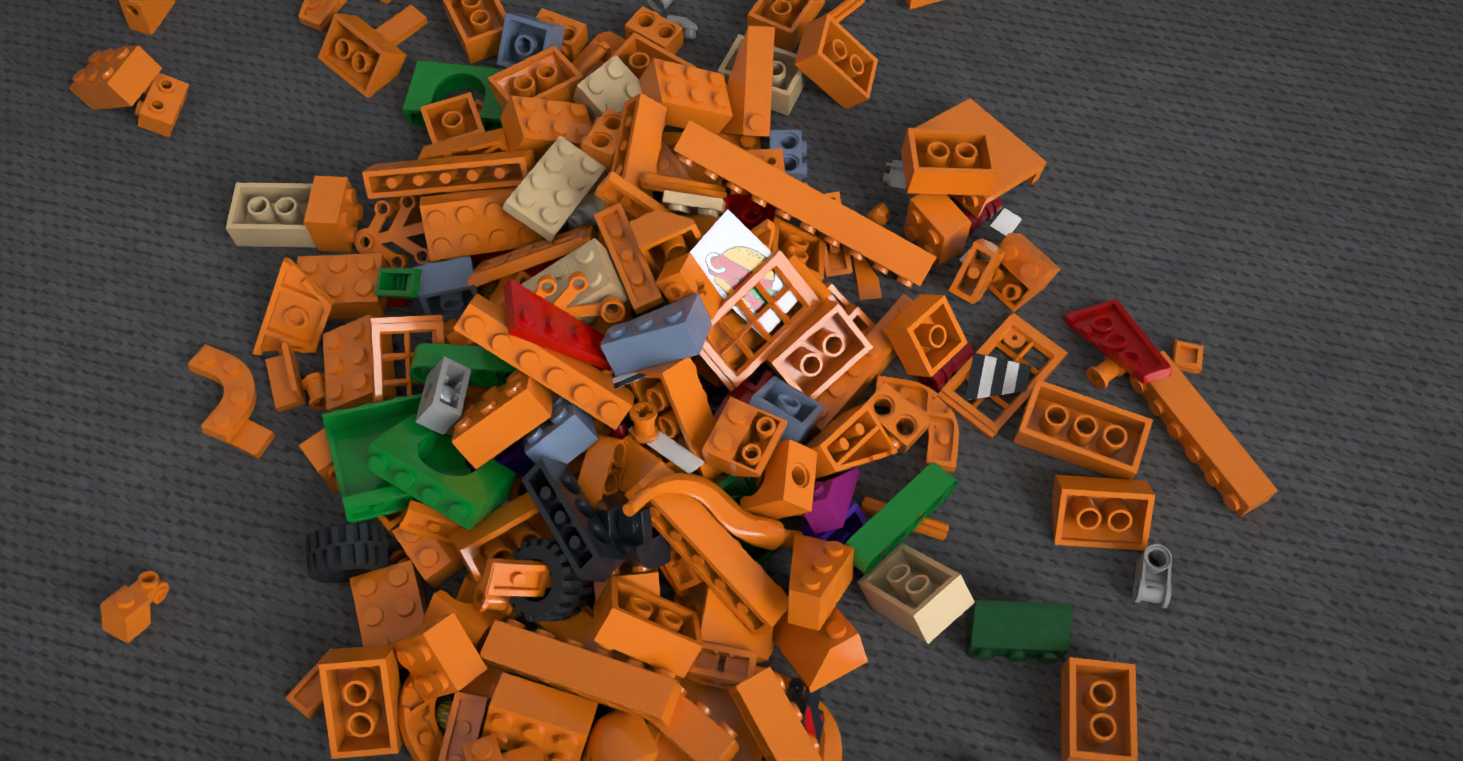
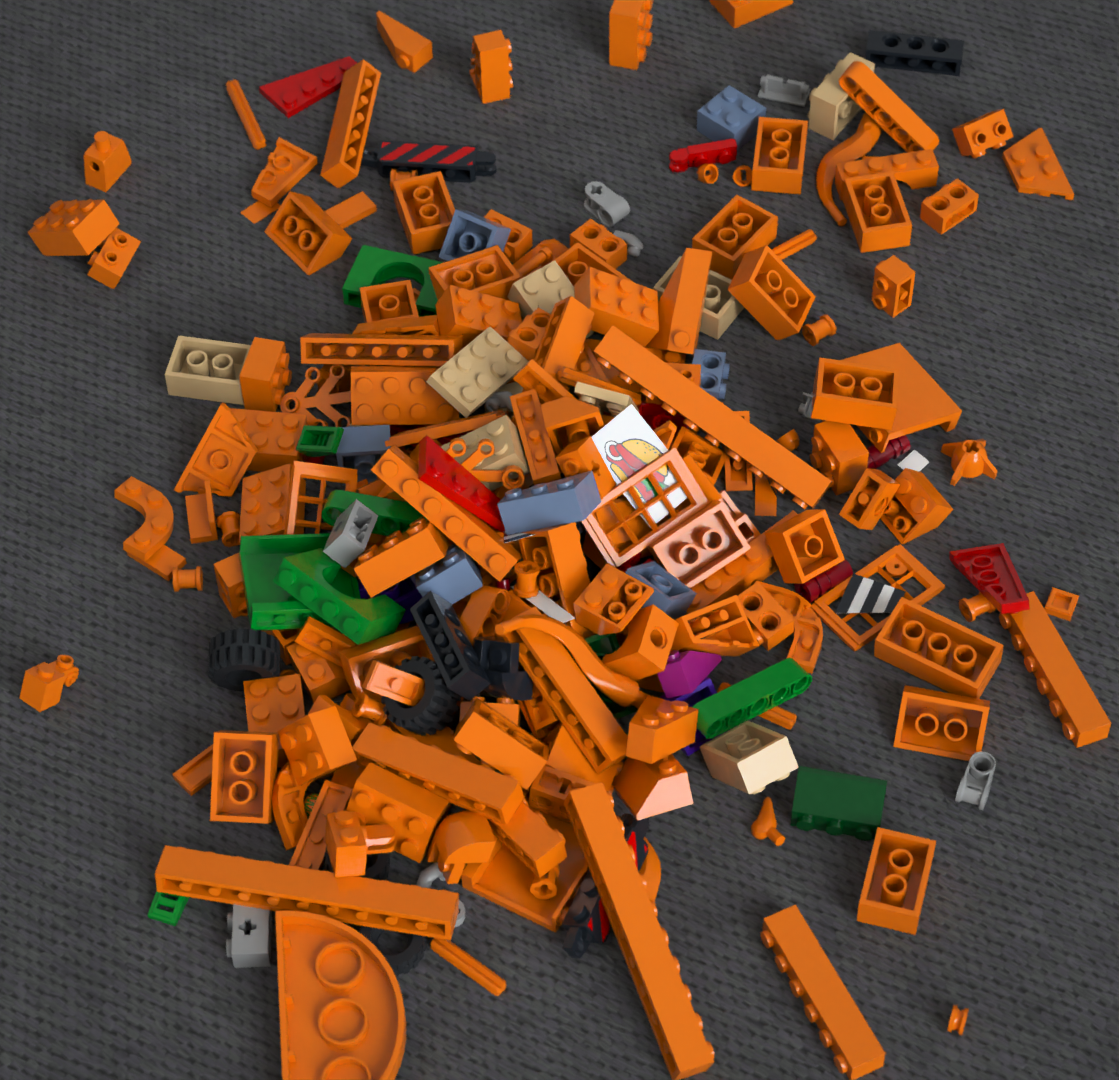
camera: 10 degrees right, 10 degrees down
(277, 456) = (187, 579): none -> orange bush
(309, 37) = (259, 211): none -> orange sticker
(885, 94) = (823, 327): none -> orange bush
(942, 661) = (766, 824): none -> orange animal
(951, 39) = (893, 286): none -> orange brick
(1061, 212) = (969, 459): none -> orange piece

